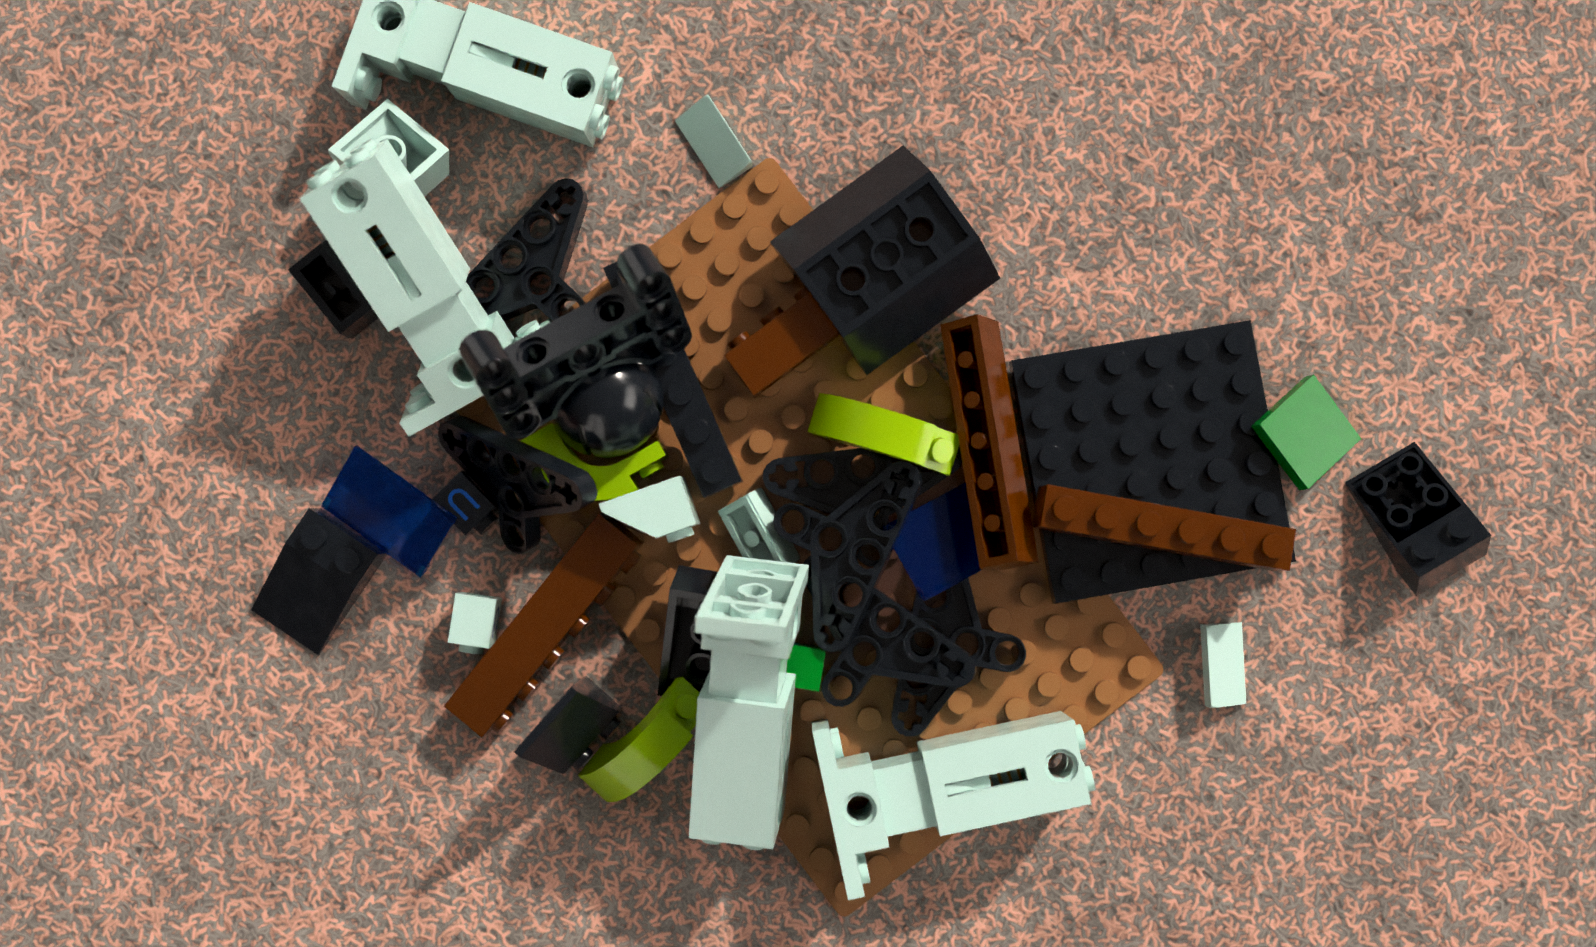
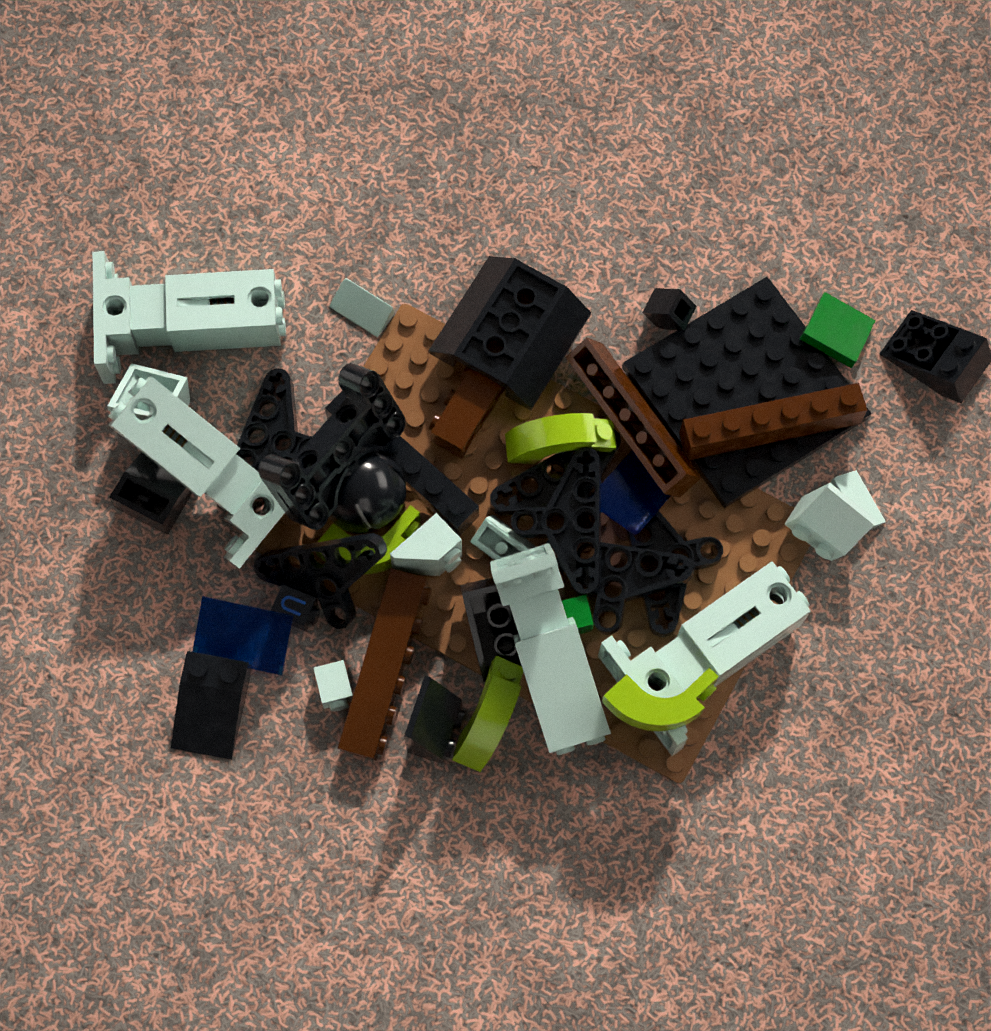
camera: 25 degrees left, 15 degrees down
(842, 859) = (654, 713): none -> lime arch
(1103, 314) = (669, 309): none -> black brick
(1172, 686) = (829, 522): none -> light aqua slope

